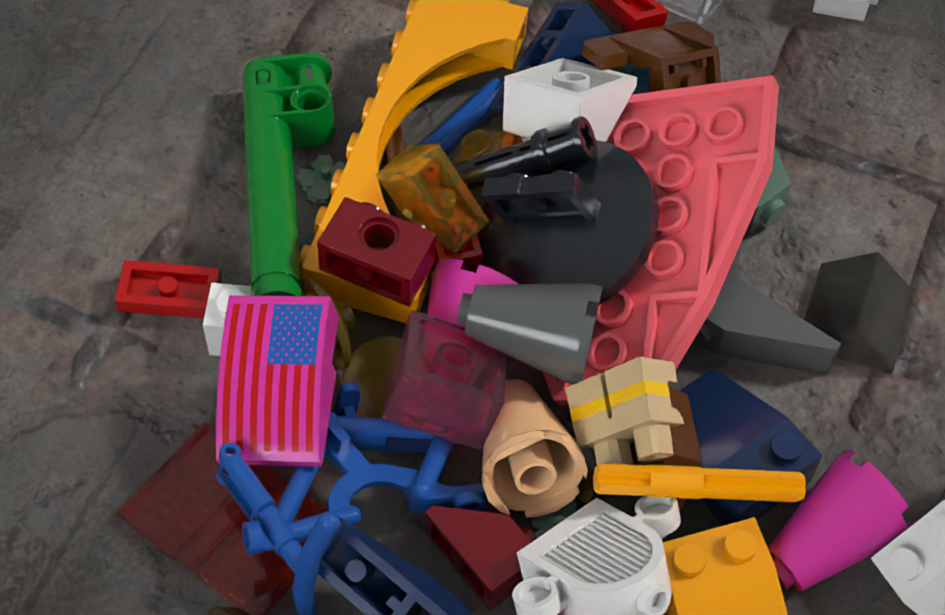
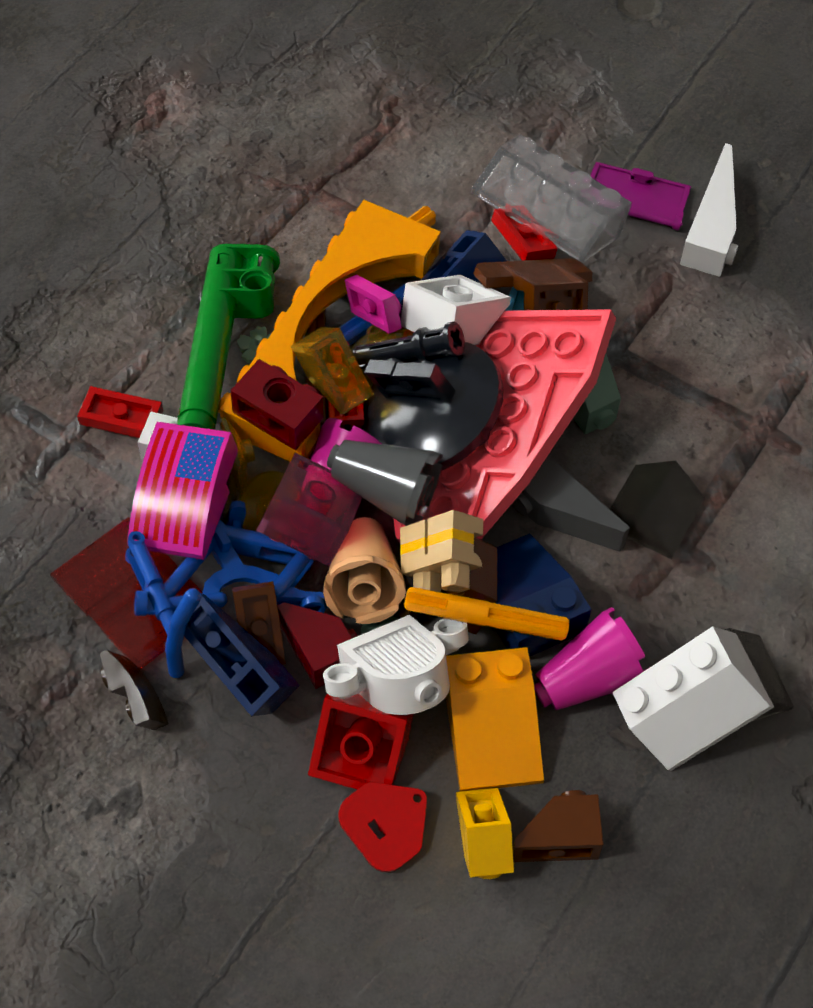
camera: 10 degrees right, 0 degrees up
(405, 527) = (259, 615): none -> reddish brown plate
(464, 108) = (373, 303): none -> dark pink plate

